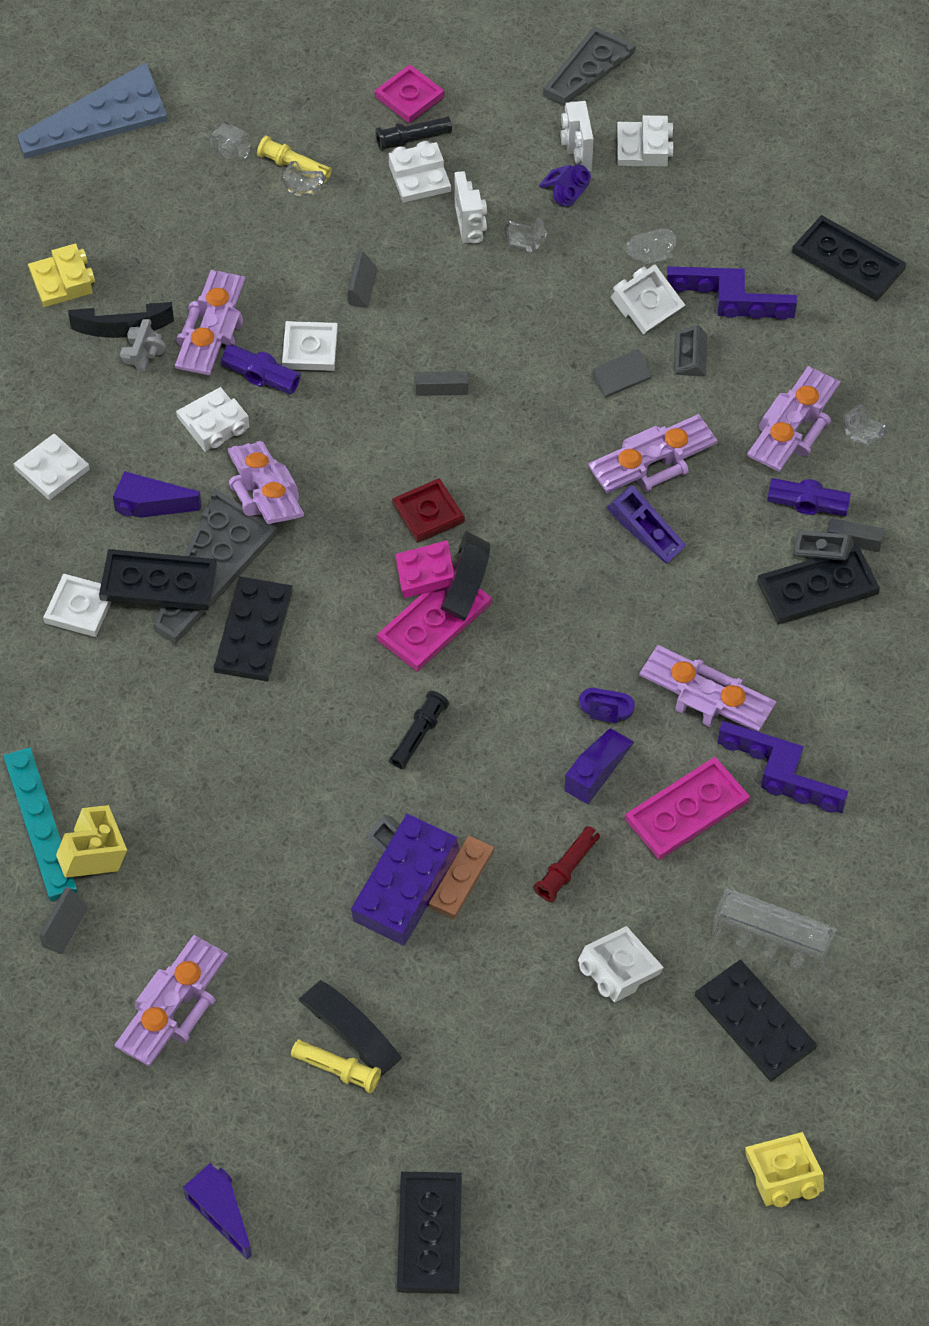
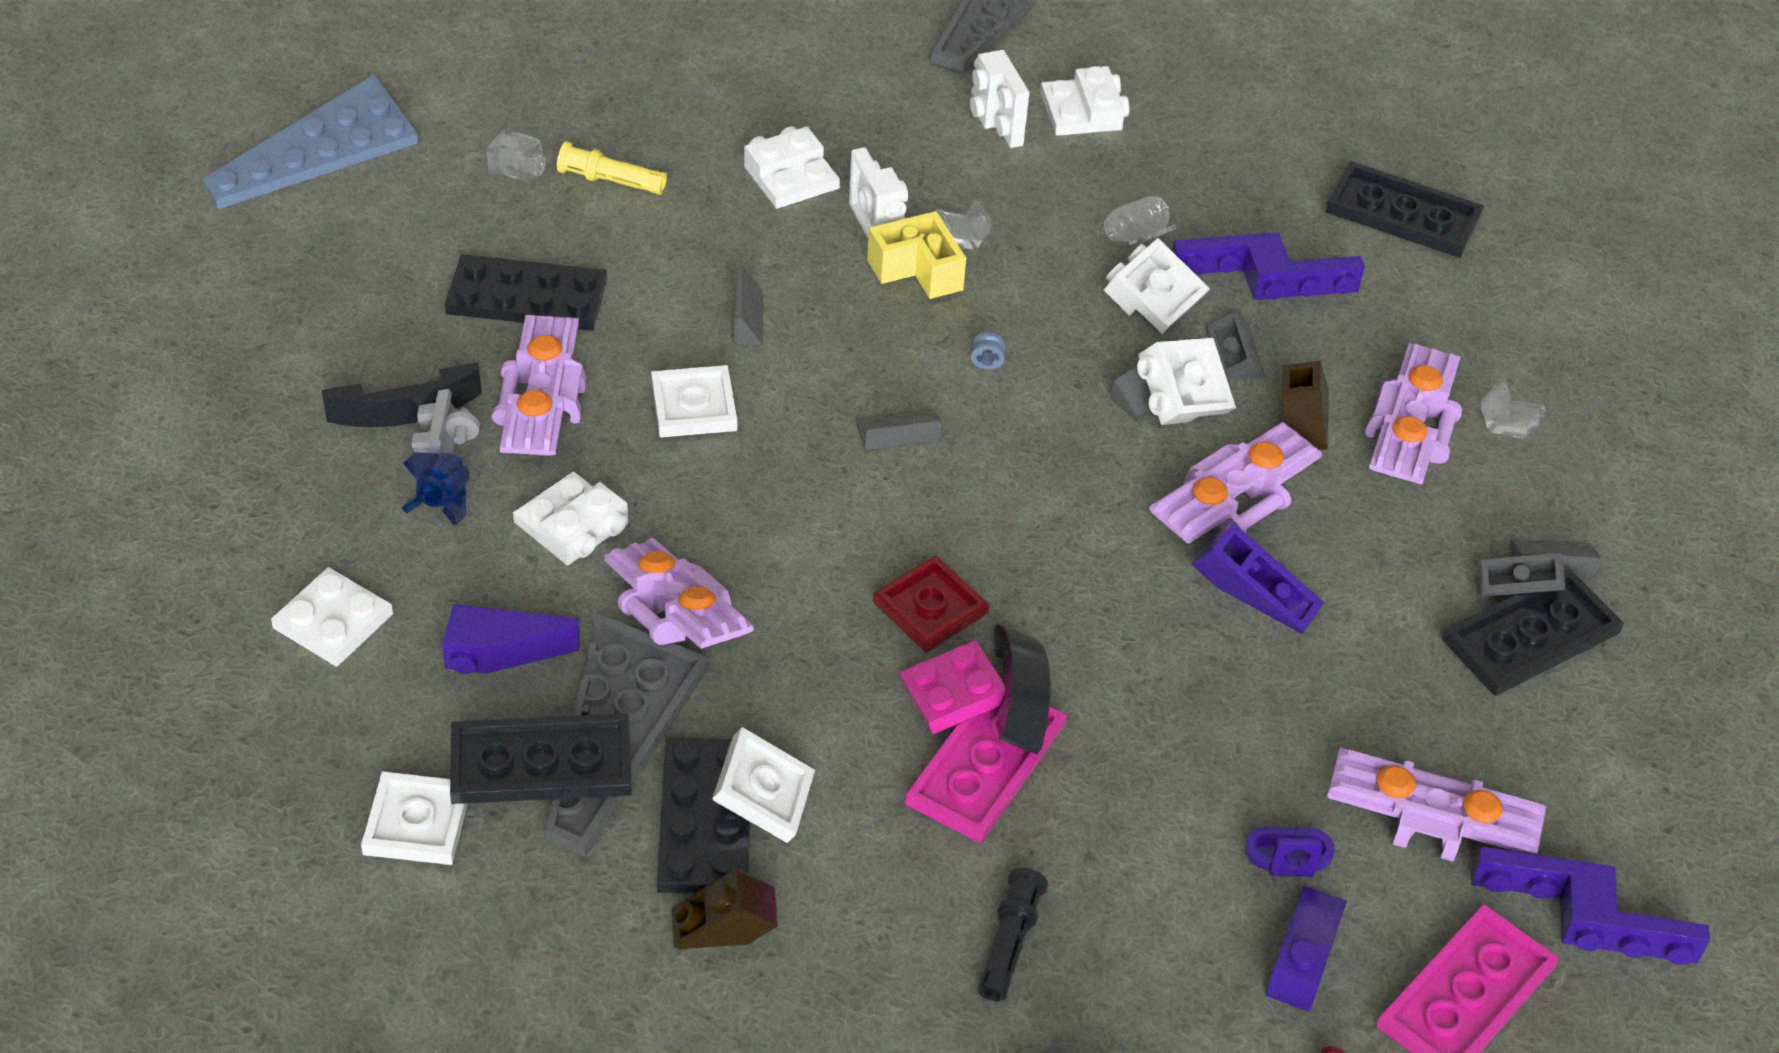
camera: 15 degrees left, 10 degrees down
(62, 275) = (302, 350): light yellow plate -> none
(133, 384) = (439, 483): none -> clear blue brick
(217, 248) = (521, 288): none -> black plate
(249, 691) = (725, 913): none -> dark brown slope
(260, 369) = (628, 439): dark purple piece -> none
(290, 615) = (764, 784): none -> white plate
(302, 182) = (630, 196): clear bracket -> none
(401, 134) = (754, 124): black pin -> none
(409, 93) = (751, 76): dark pink plate -> none
(488, 250) = (918, 248): none -> light yellow brick
(516, 333) = (984, 342): none -> sand blue bush
(568, 184) = (1002, 157): dark purple bracket -> none
(642, 374) = (1185, 380): none -> white plate
(720, 402) = (1306, 401): none -> dark brown slope
(808, 497) = (1473, 513): dark purple piece -> none

